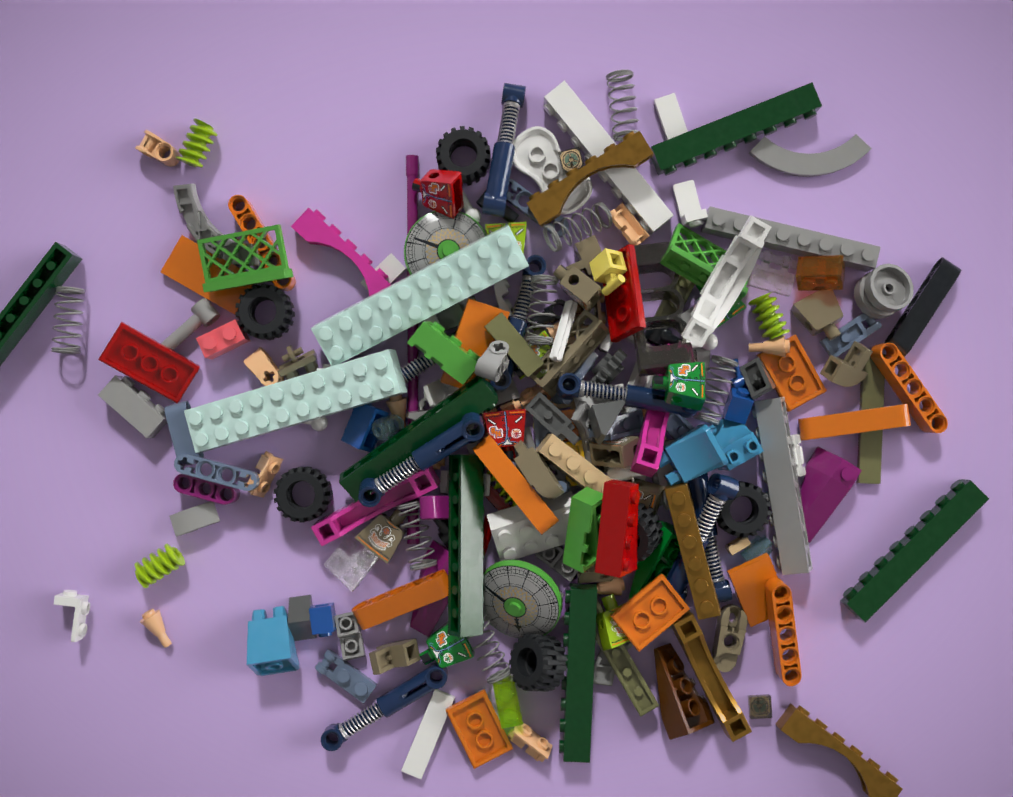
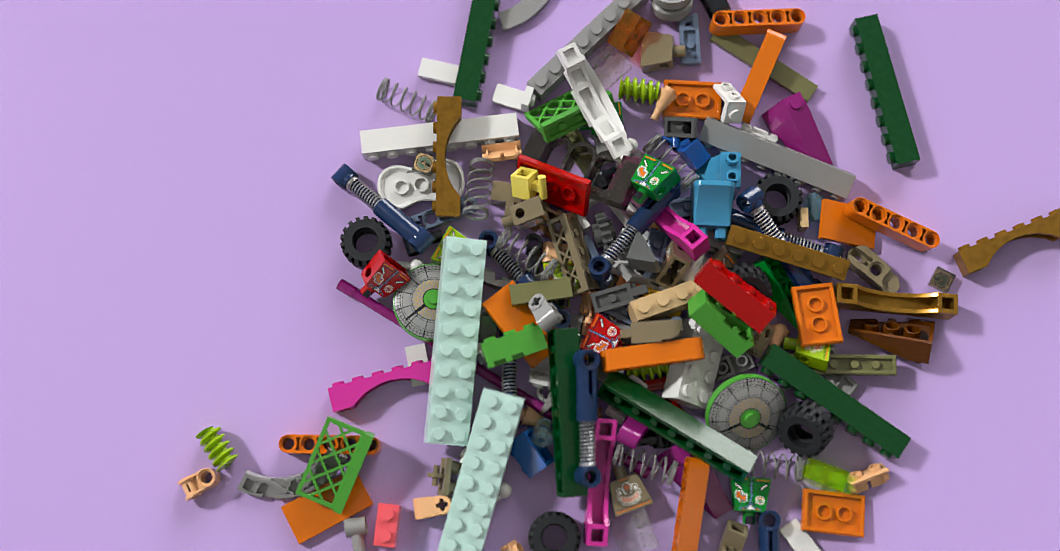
camera: 60 degrees left, 10 degrees down
(247, 308) = (371, 468): black tyre -> none
(563, 331) = (553, 247): white axle -> none
(811, 414) = (734, 103): none -> white bracket
(850, 370) = (716, 55): dark tan brick -> none

